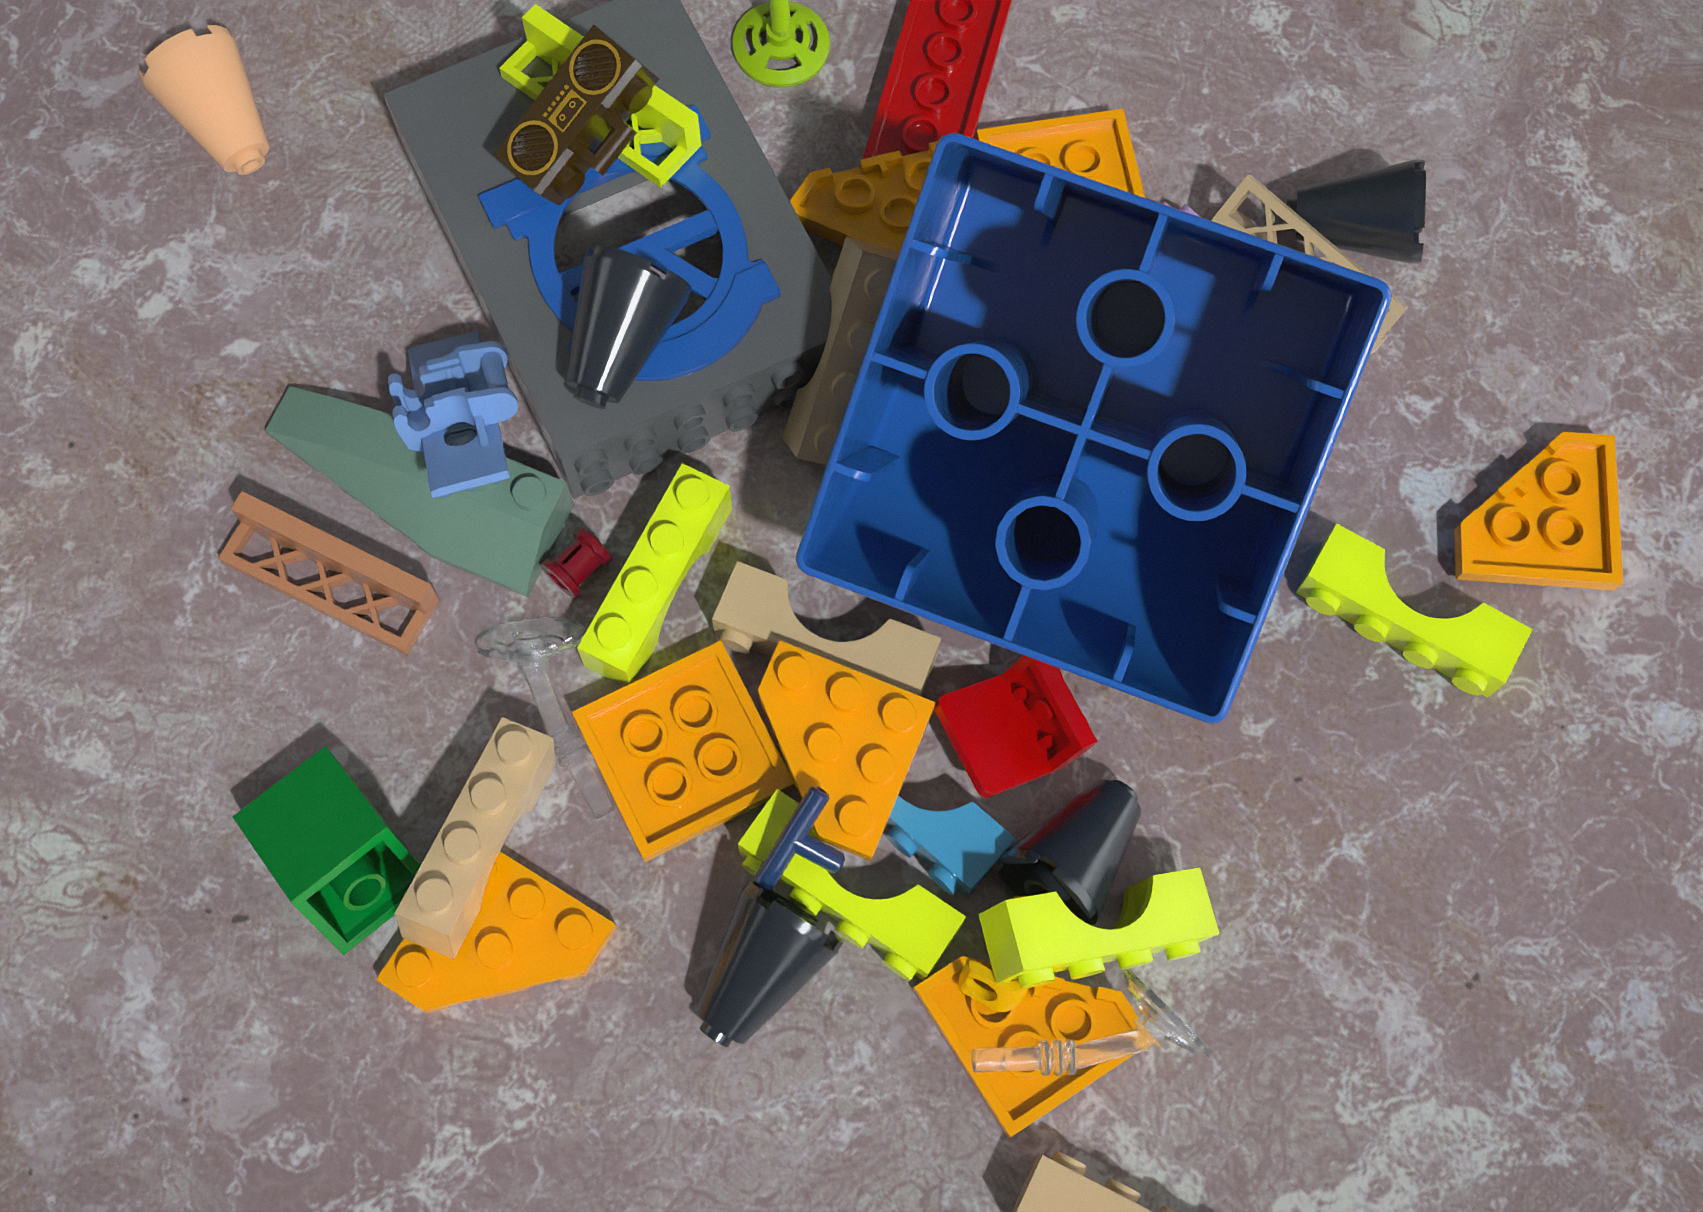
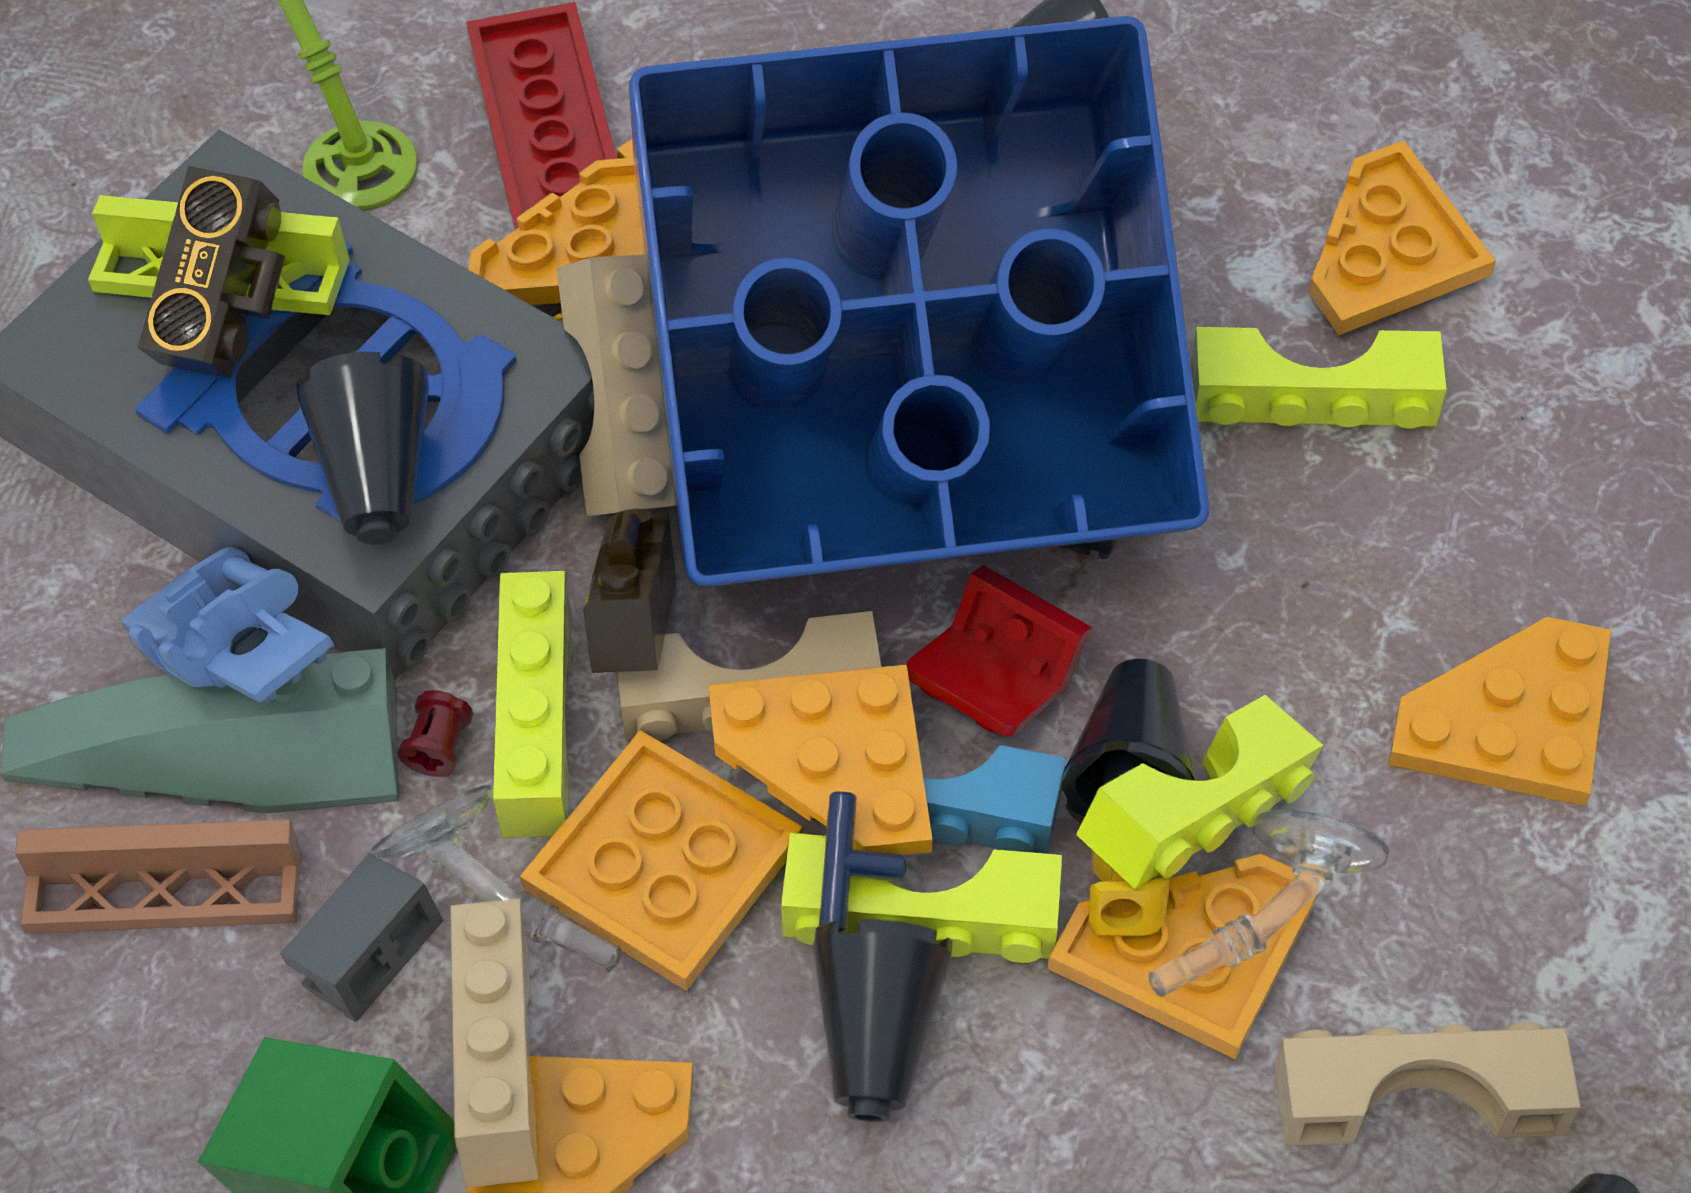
camera: 25 degrees left, 15 degrees down
(439, 697) = (363, 936): none -> dark grey hinge
(761, 535) = (630, 593): none -> dark brown piece
(1394, 978) = (1513, 714): none -> light orange plate

